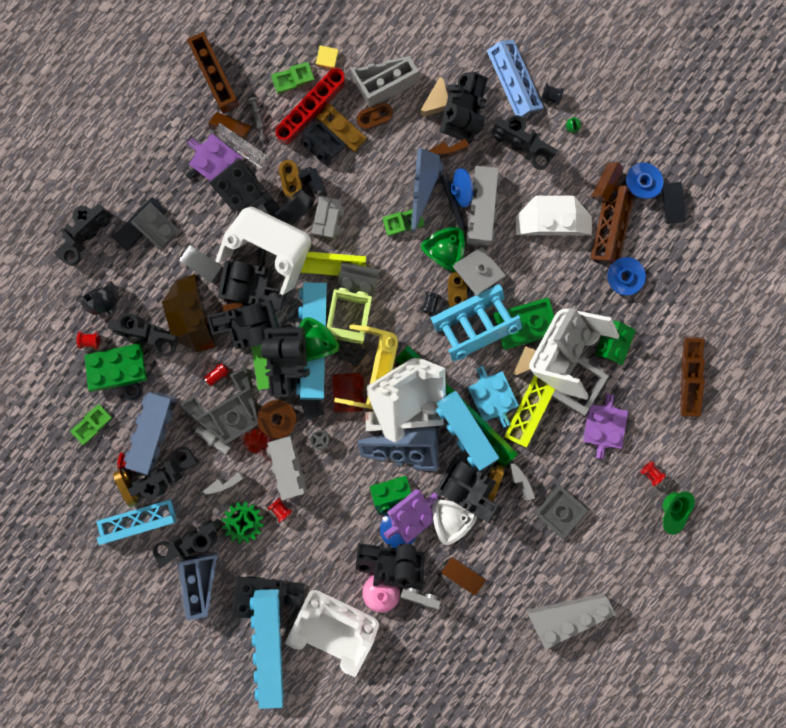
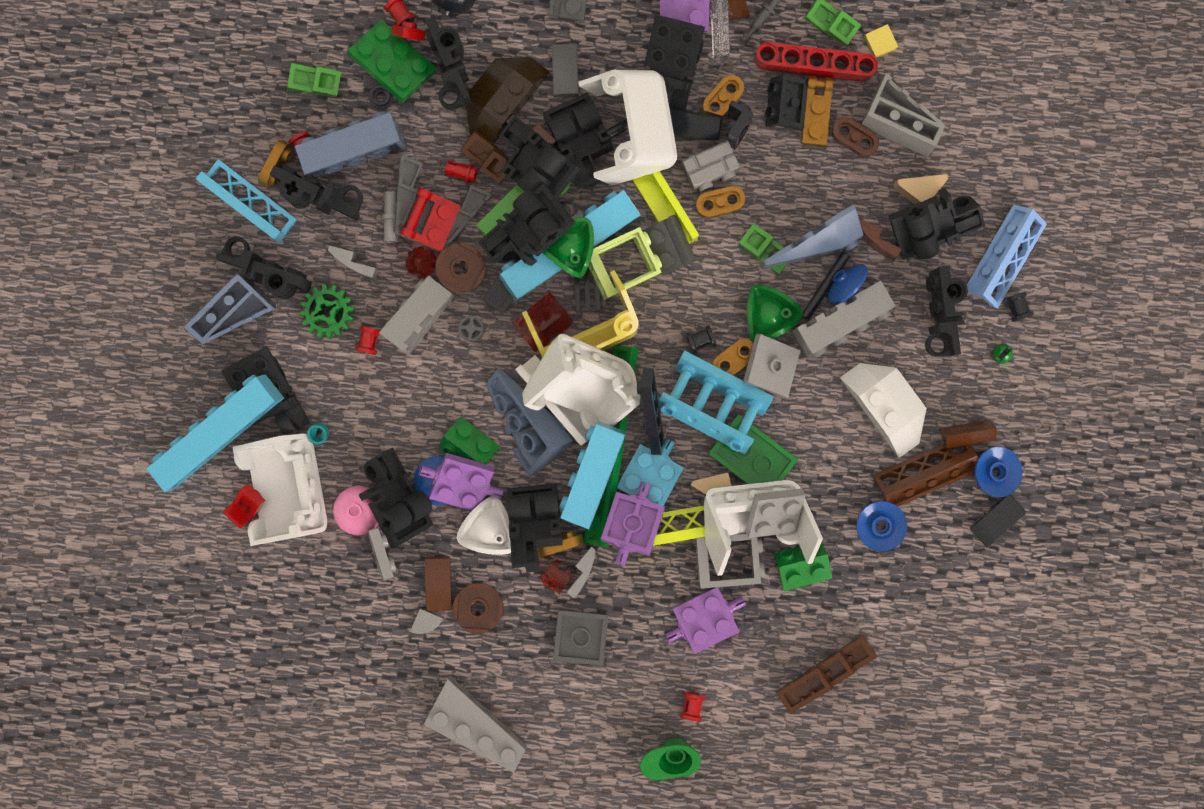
camera: 55 degrees right, 0 degrees up
(104, 343) = (408, 30): none -> red plate
(218, 351) = (486, 155): none -> reddish brown slope
(238, 412) = (438, 222): none -> red plate
(312, 587) = (313, 431): none -> teal hinge
(327, 663) = (245, 506): none -> red bracket
(353, 228) = (719, 200): none -> pearl gold plate
(451, 364) = (652, 416): none -> black plate
(481, 601) = (425, 622): none -> light grey tile
(507, 561) = (467, 617): none -> reddish brown plate
(513, 500) = (555, 578): none -> clear red tile
(515, 428) = (632, 523): none -> medium lavender plate

